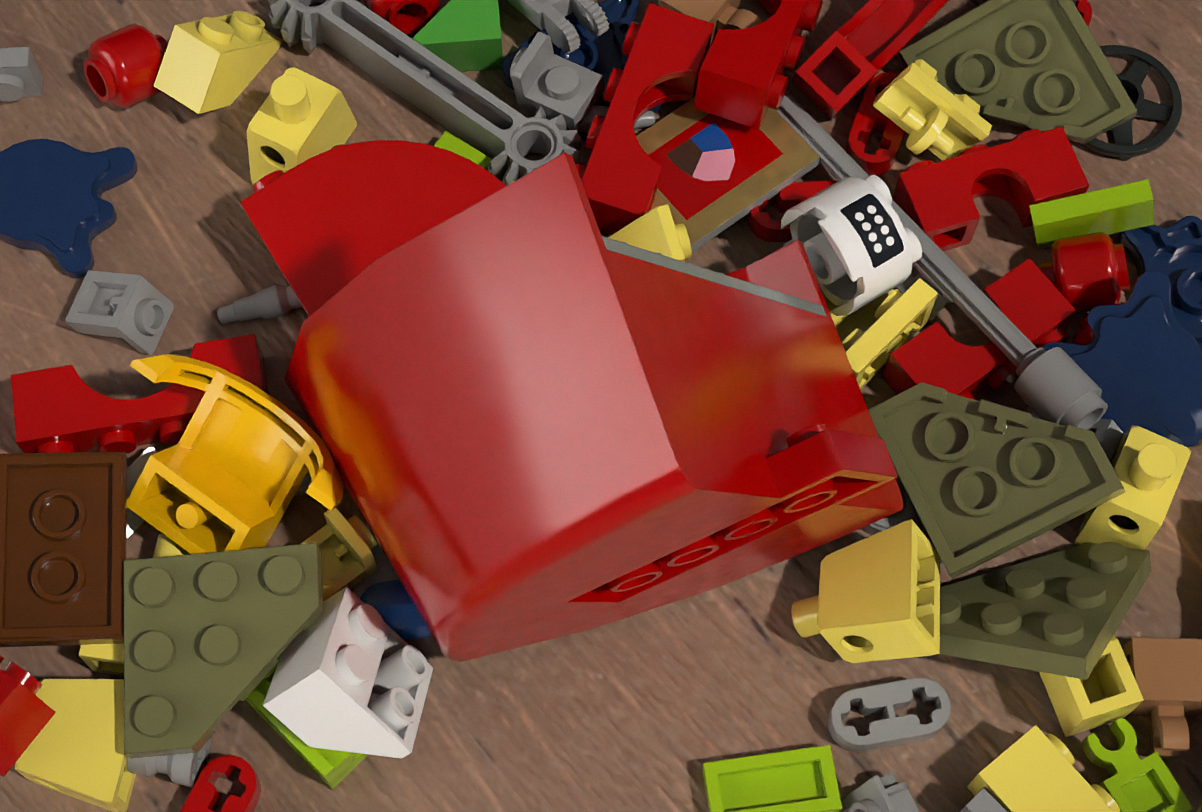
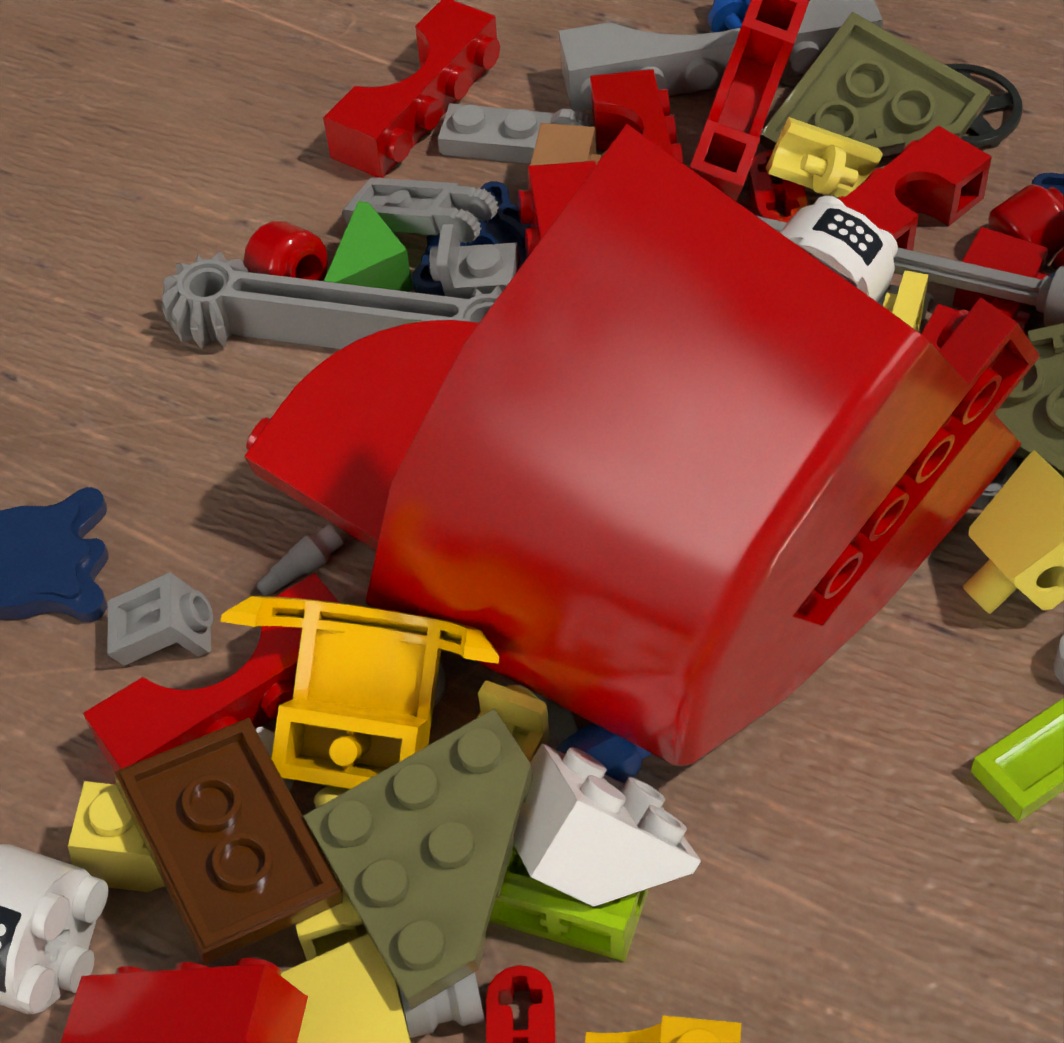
camera: 20 degrees left, 15 degrees down
(125, 65) = (55, 416): red head -> none
(215, 59) = (138, 377): light yellow slope -> none
(296, 123) = (252, 376): light yellow torso -> none
(1101, 210) = (1025, 163): lime tile -> none

